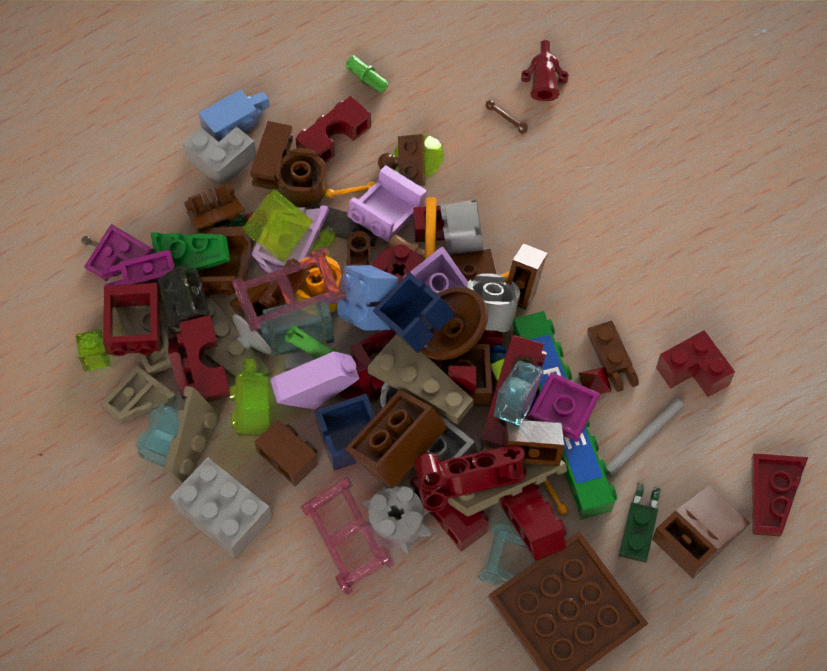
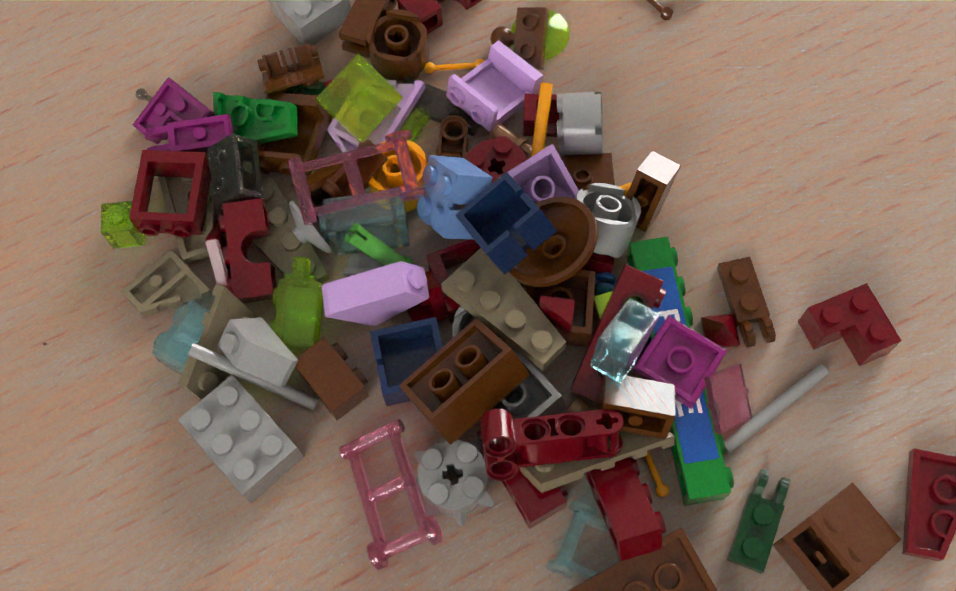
camera: 10 degrees right, 5 degrees up
(224, 457) = (222, 363): none -> light grey bar
(226, 436) = (257, 350): none -> light grey slope
(605, 430) = (728, 398): none -> clear pink piece

